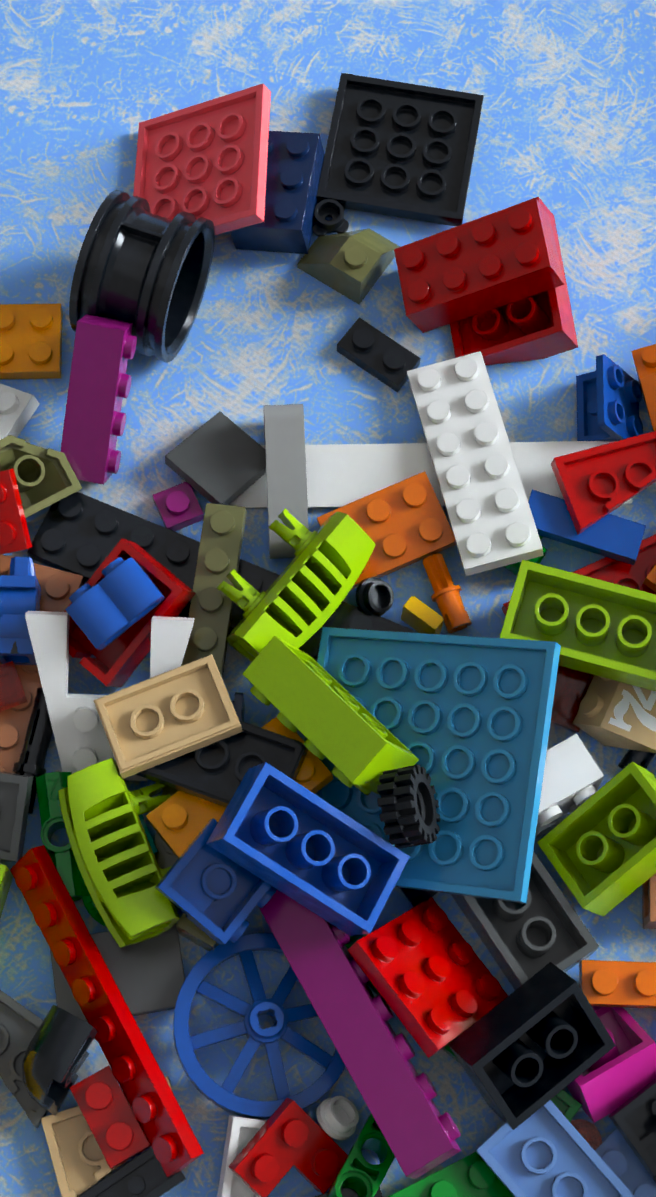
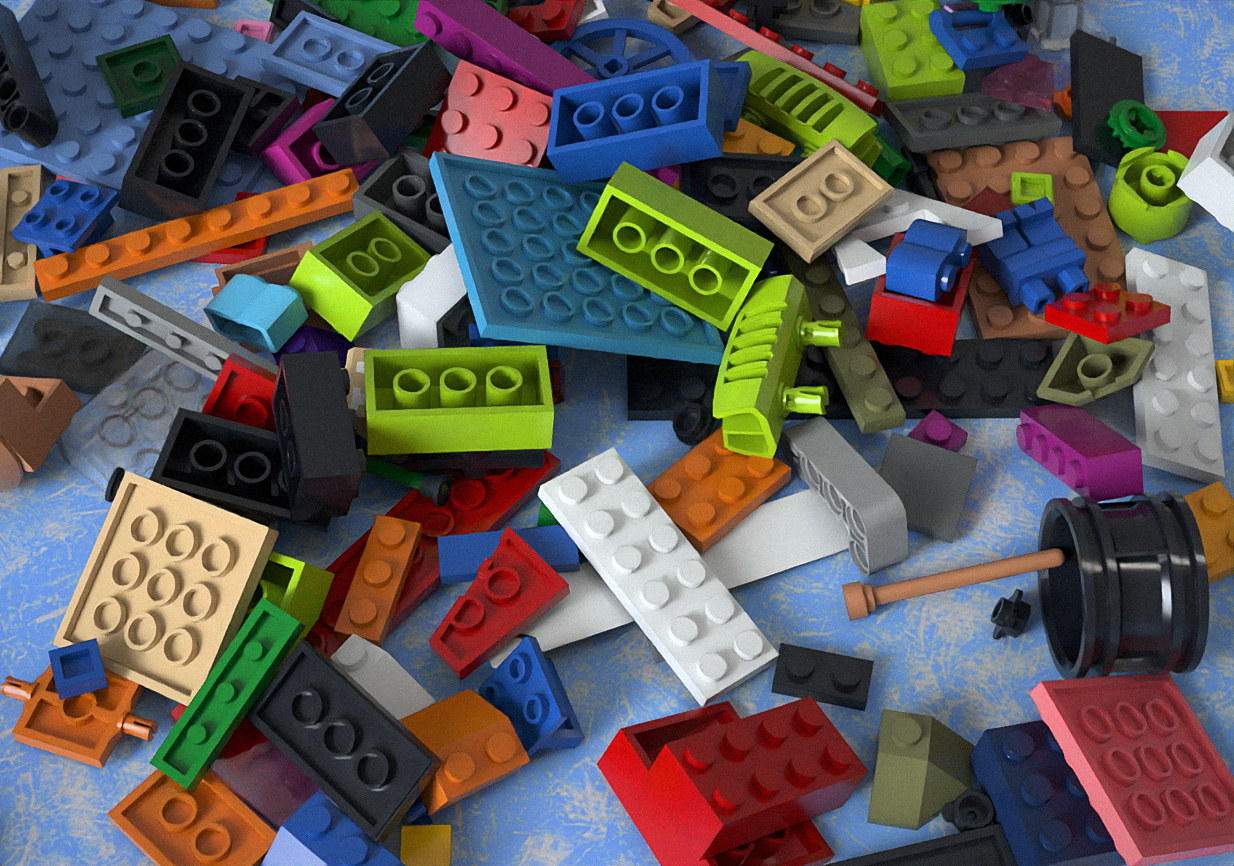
camera: 160 degrees right, 15 degrees down
(216, 333) = (1010, 615): none -> black plate
(318, 391) = (864, 599): none -> nougat piece
(408, 806) = (565, 183): black tyre -> none
(421, 617) = (635, 419): yellow tile -> none
(446, 594) = (603, 438): orange axle -> none

